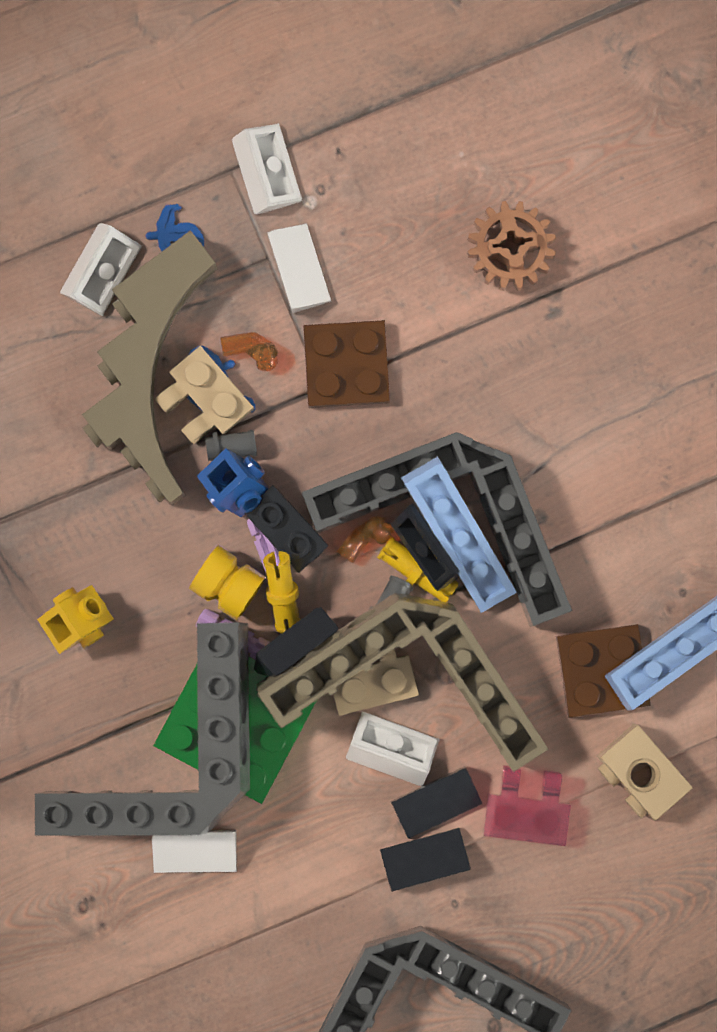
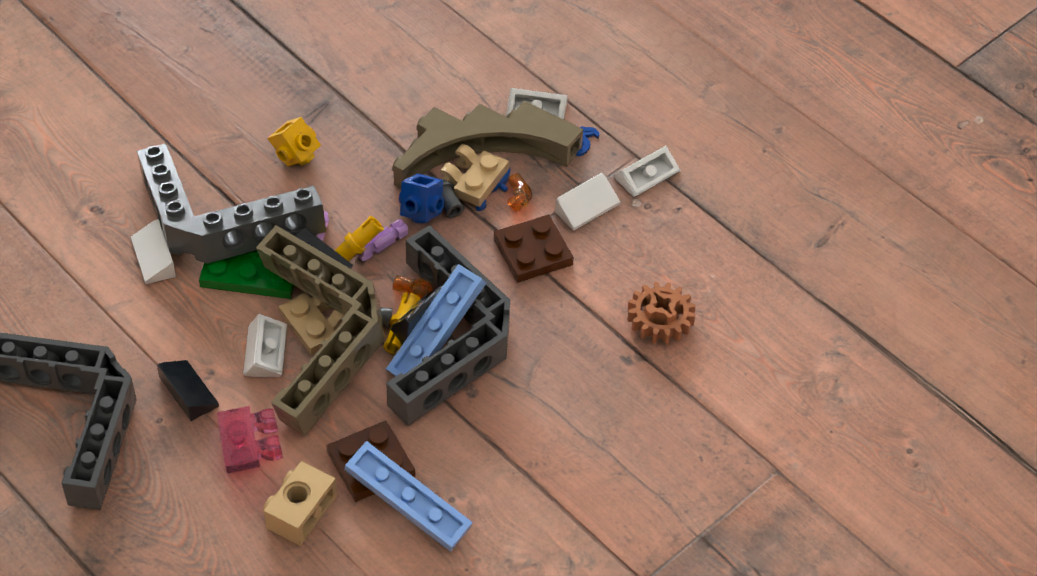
camera: 70 degrees right, 35 degrees down
(226, 582) = (349, 212): yellow wheel -> none
(287, 529) = (394, 243): black hinge -> none
(436, 802) = (234, 380): black slope -> none

